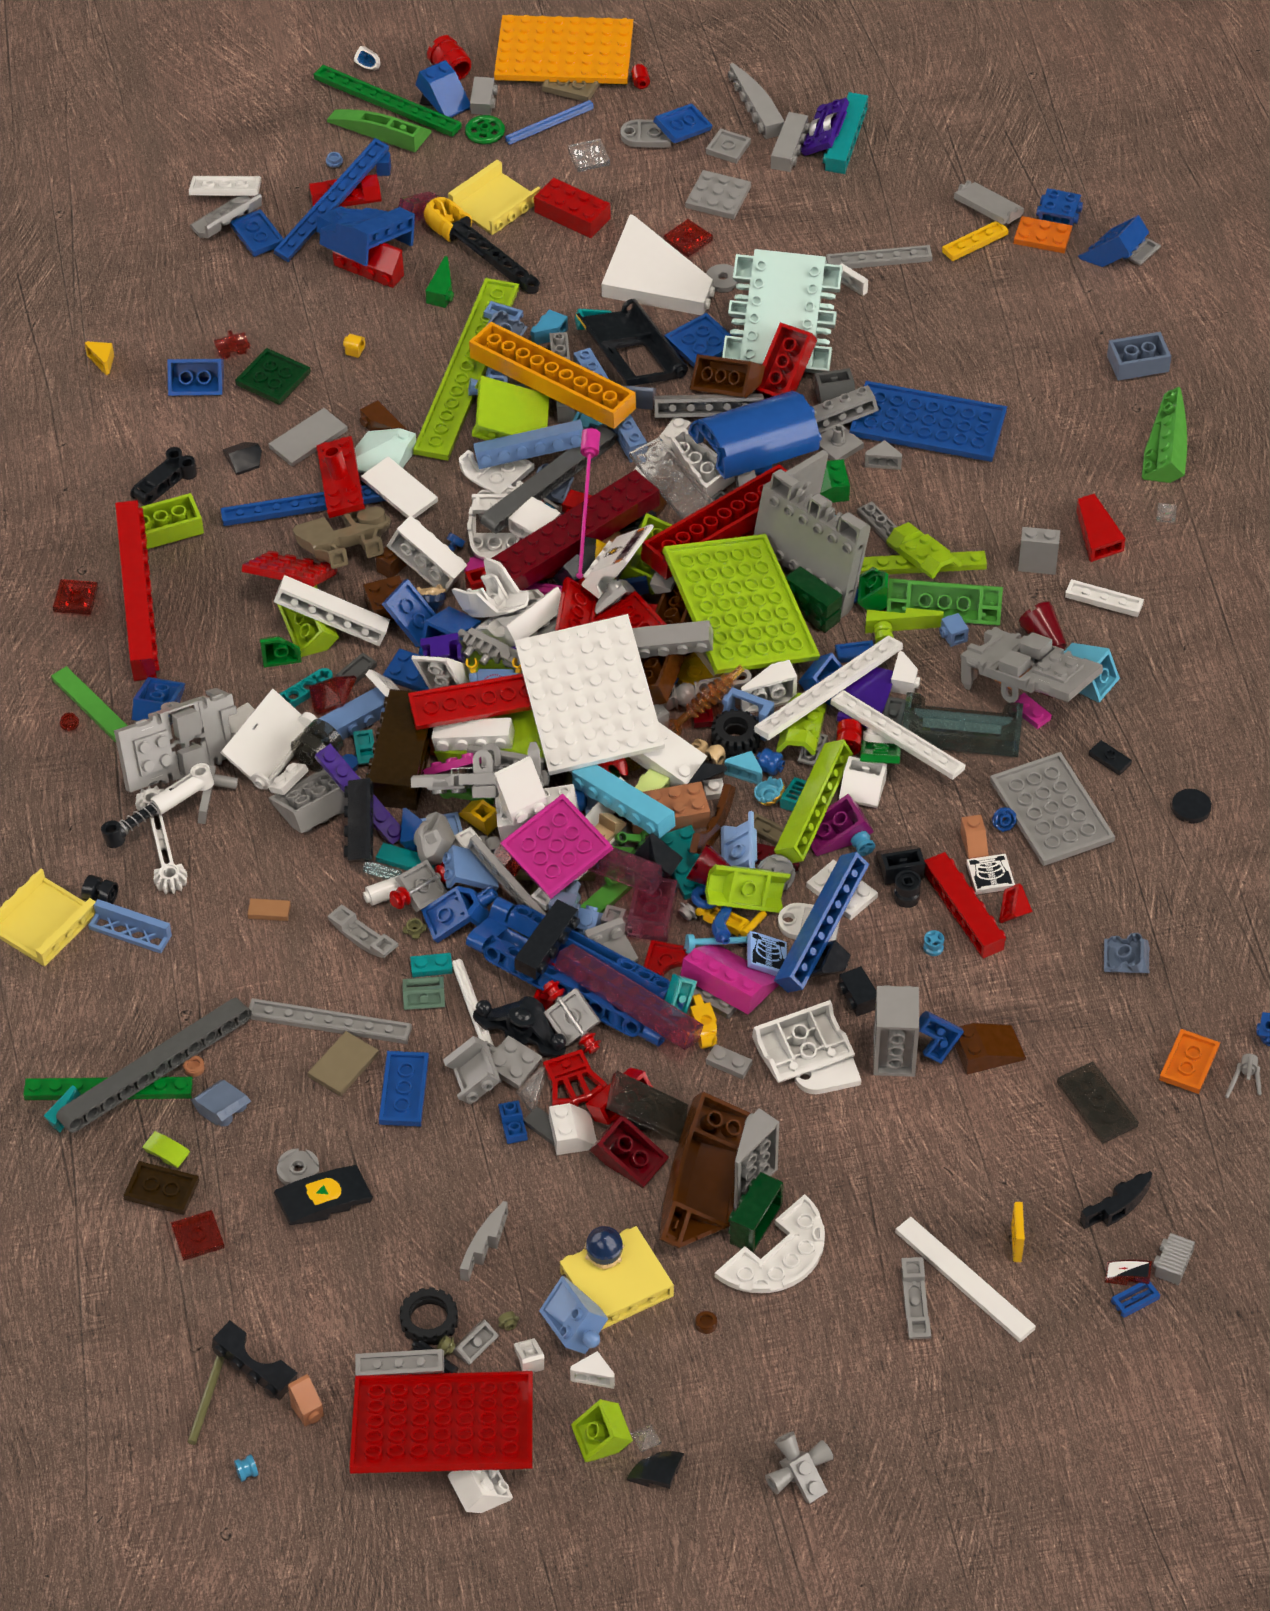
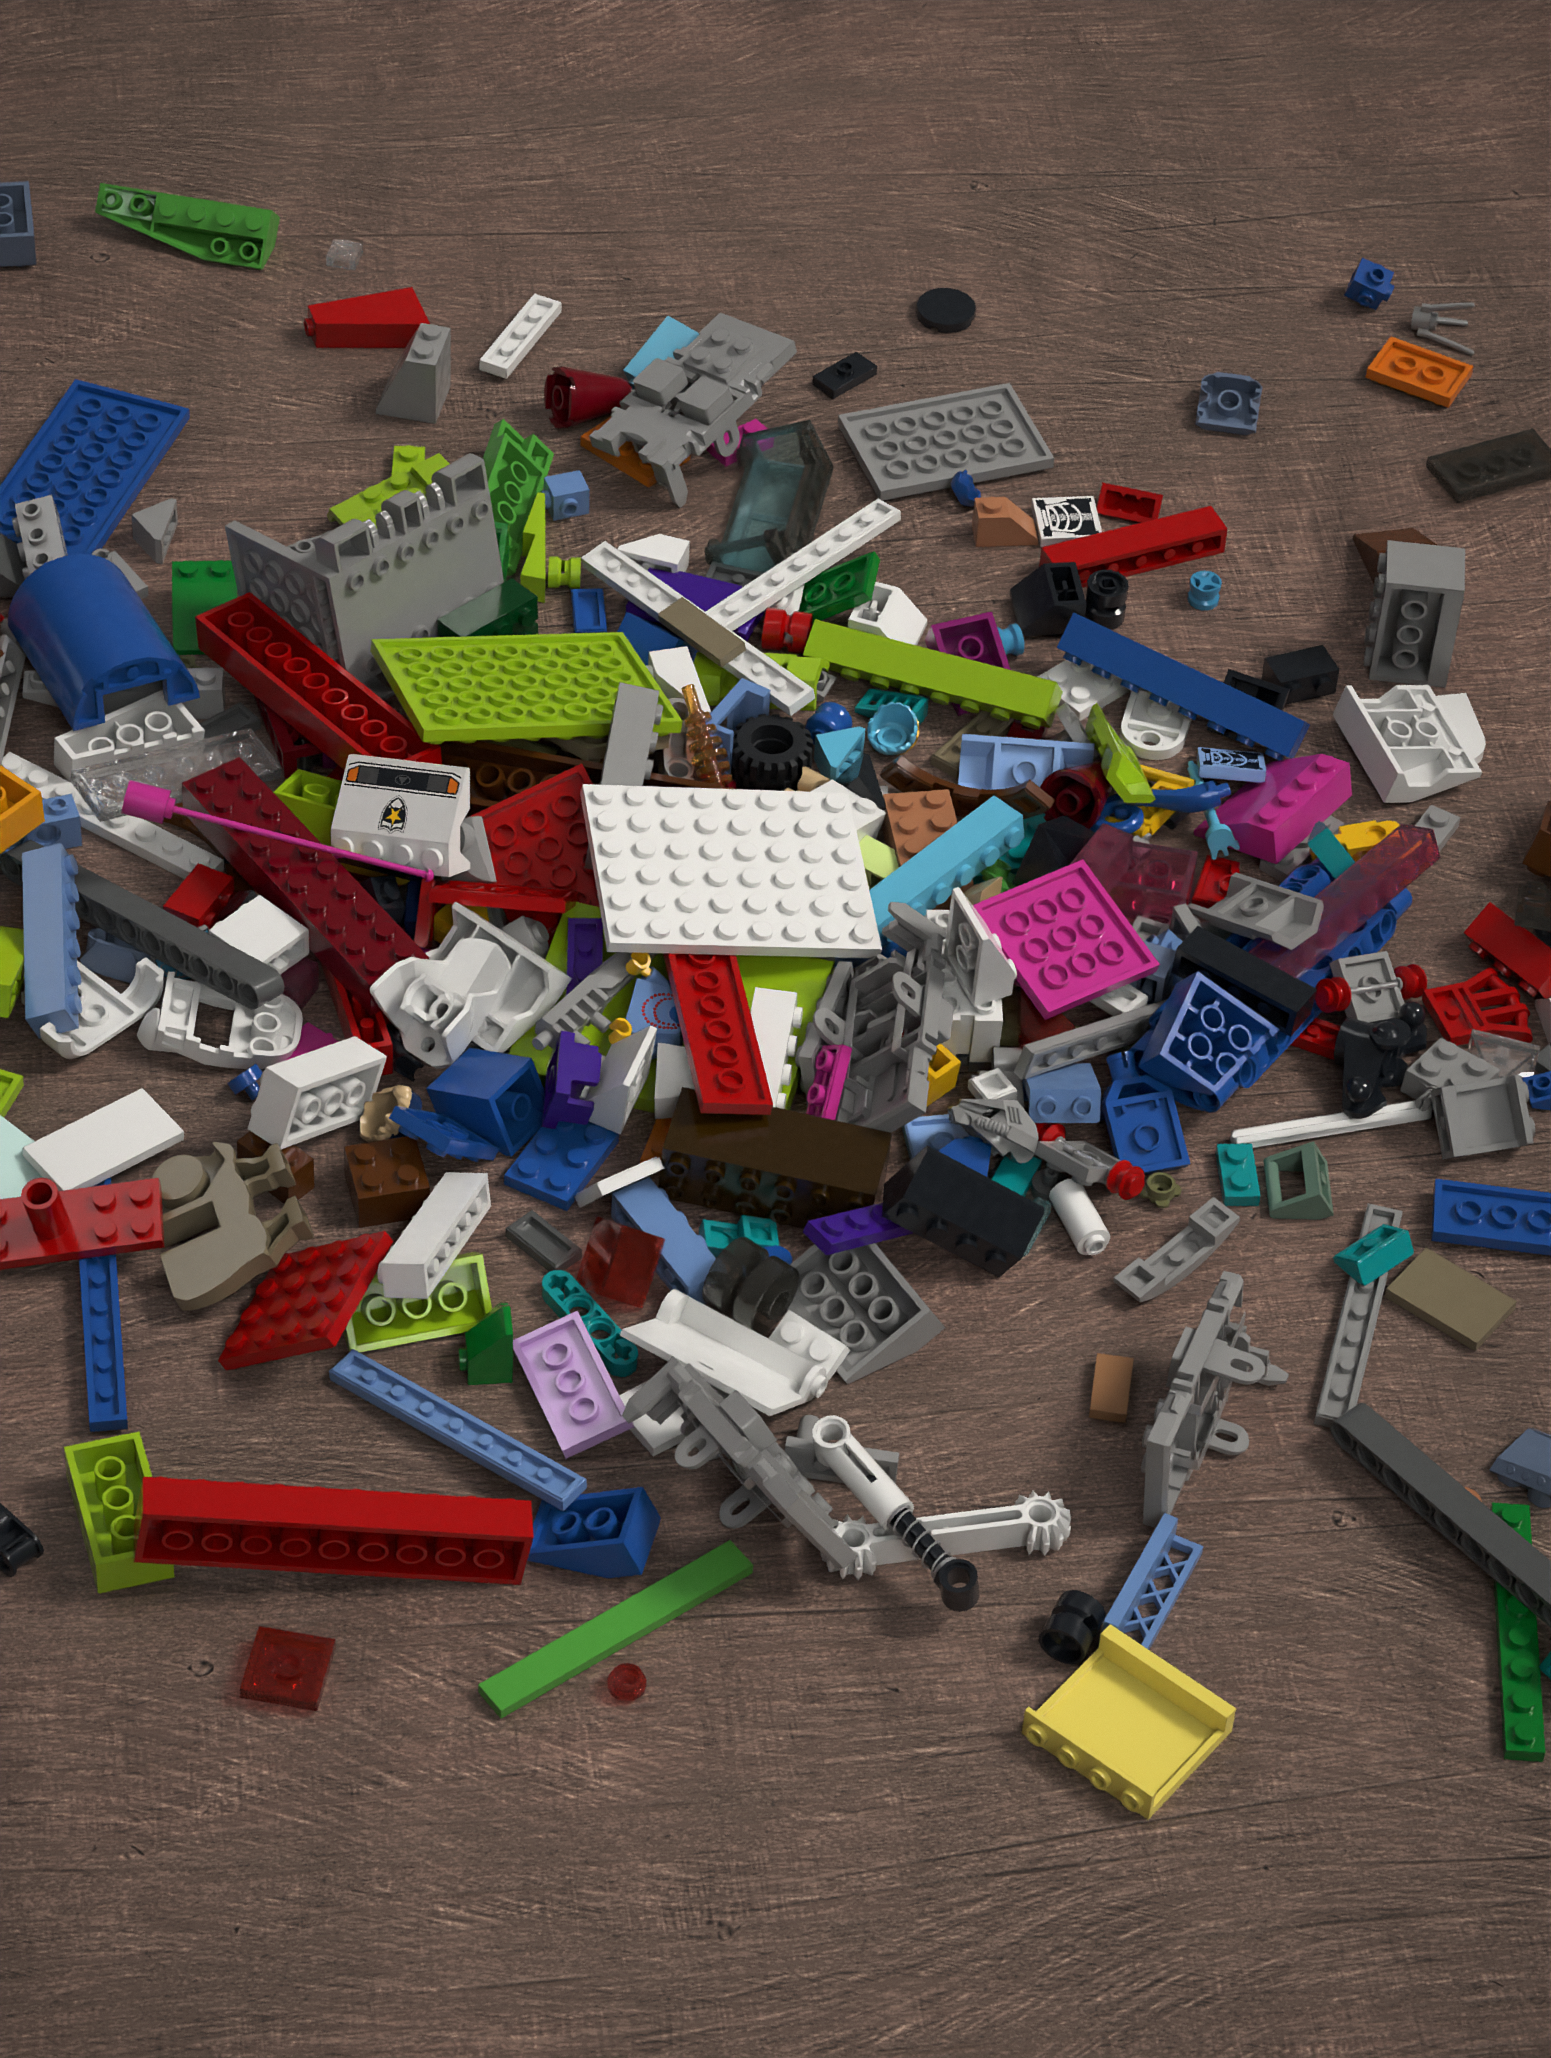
camera: 90 degrees left, 5 degrees down
(208, 919) = (1197, 1379): none -> light grey piece
(222, 643) = (458, 1430): none -> medium blue tile
(257, 681) = (571, 1384): none -> lavender plate
(368, 1023) = (1375, 1253): none -> teal slope
(499, 922) = (1203, 1037): none -> blue wedge
(608, 949) = (1264, 912): none -> light grey piece
(815, 684) = (701, 632): none -> dark tan tile

